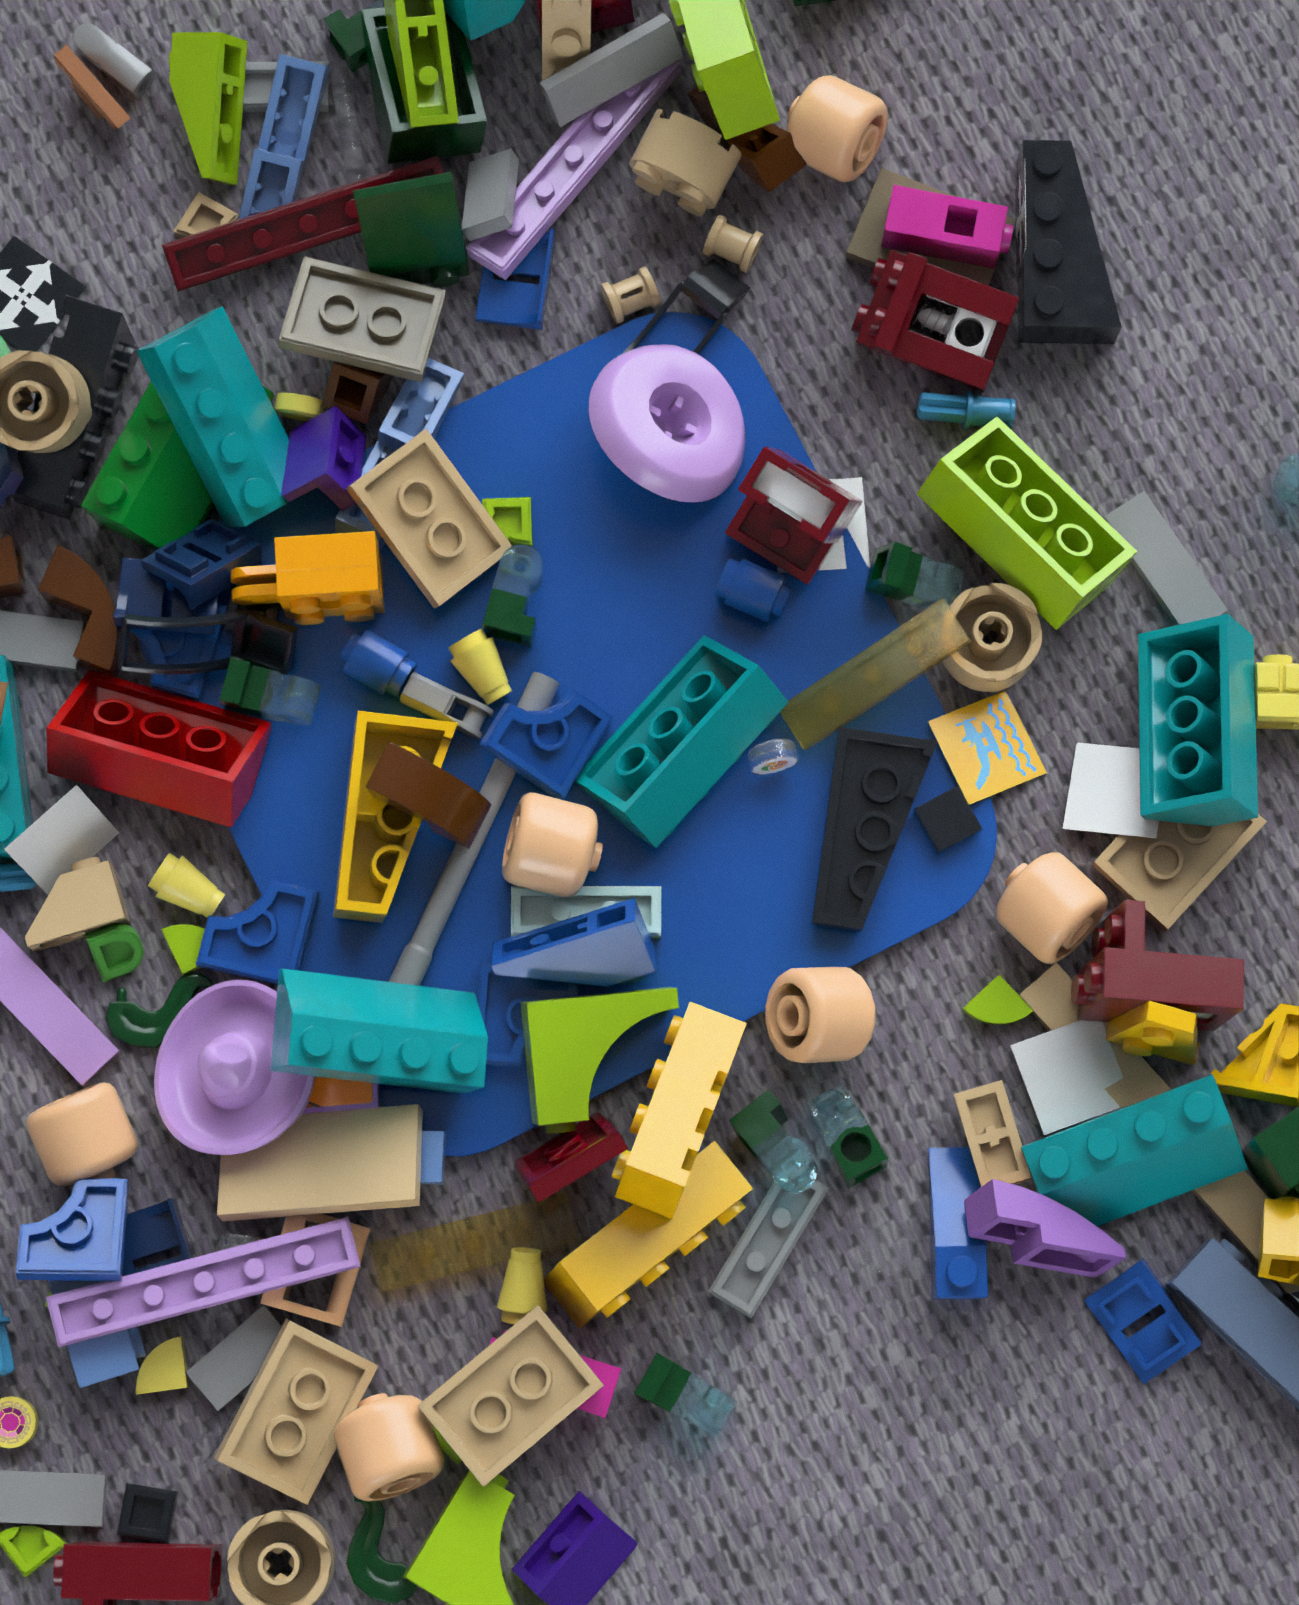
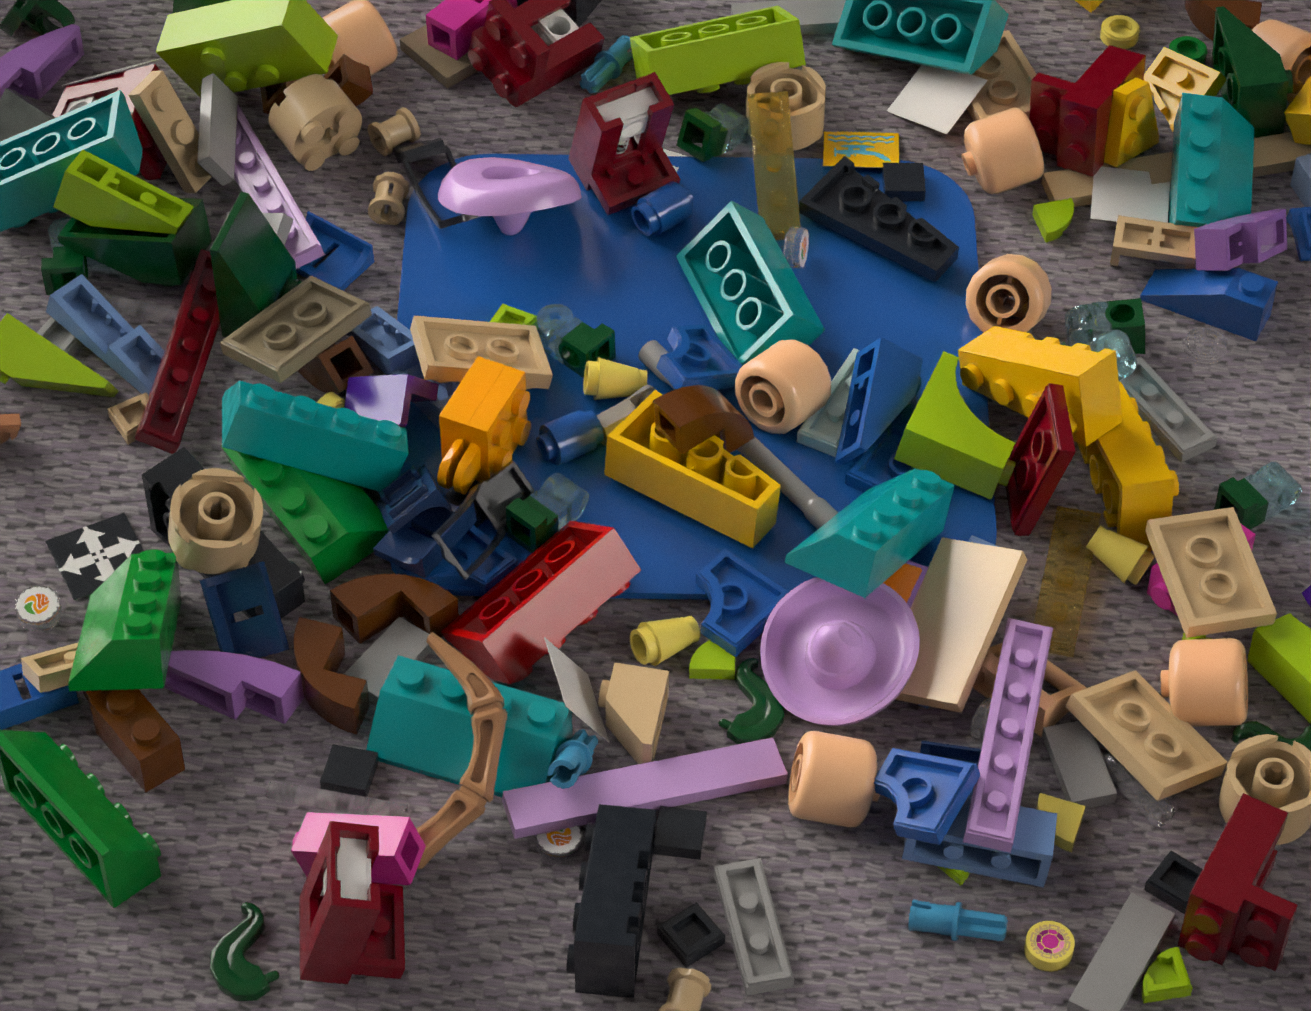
camera: 60 degrees left, 30 degrees down
(115, 950) = (687, 706): bright green tile -> none

